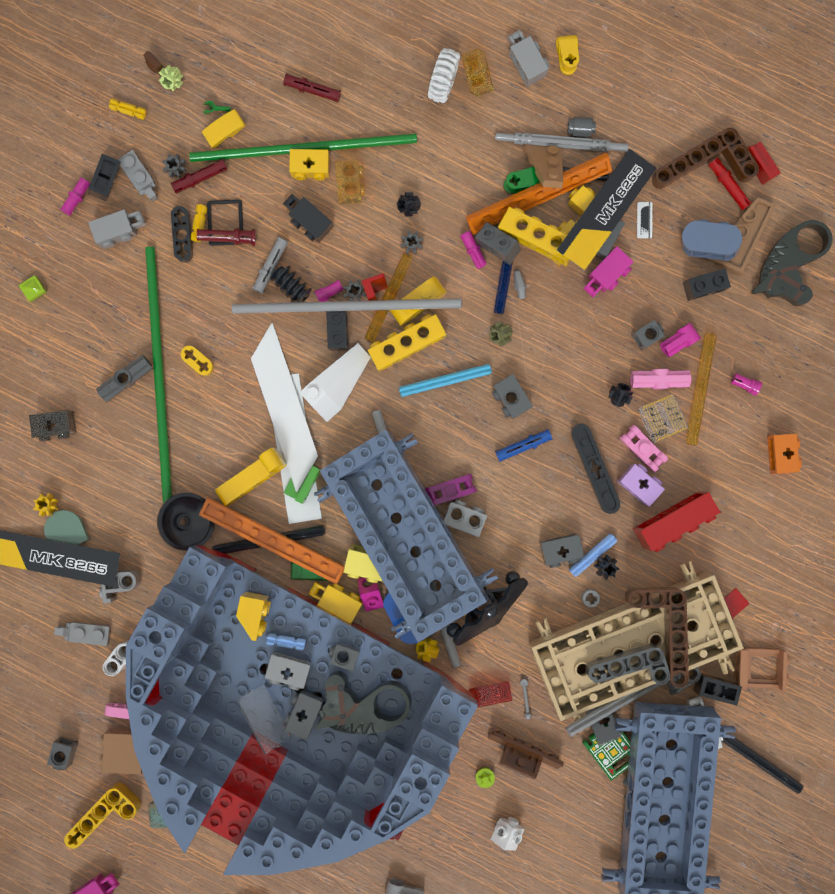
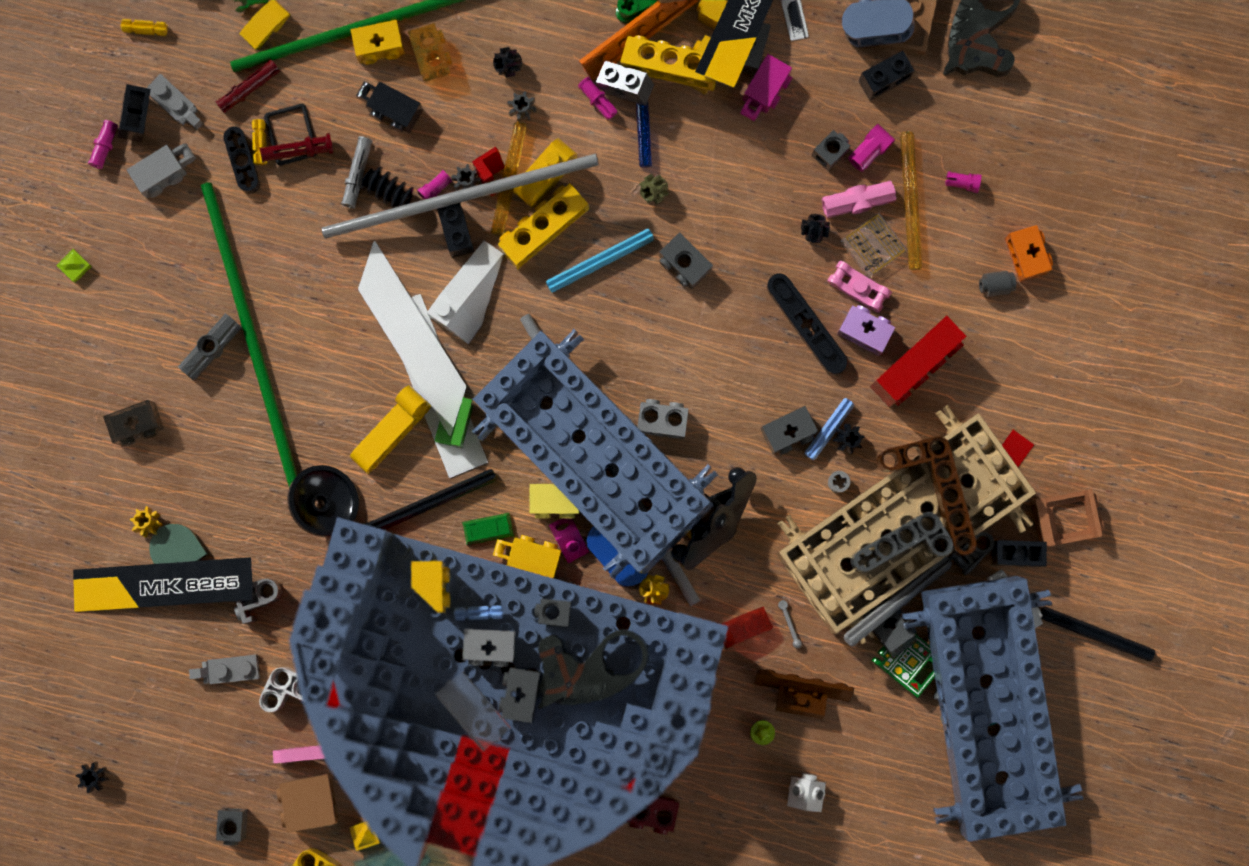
camera: 15 degrees left, 5 degrees down
(175, 171) = (211, 76): dark grey gear -> none
(194, 364) = (296, 301): yellow beam -> none
(271, 540) = (433, 500): orange tile -> none
(451, 489) = (638, 389): magenta plate -> none
(520, 284) = (663, 126): light grey bar -> none
(544, 436) = (710, 318): blue pin -> none
(753, 471) = (997, 283): none -> dark grey brick

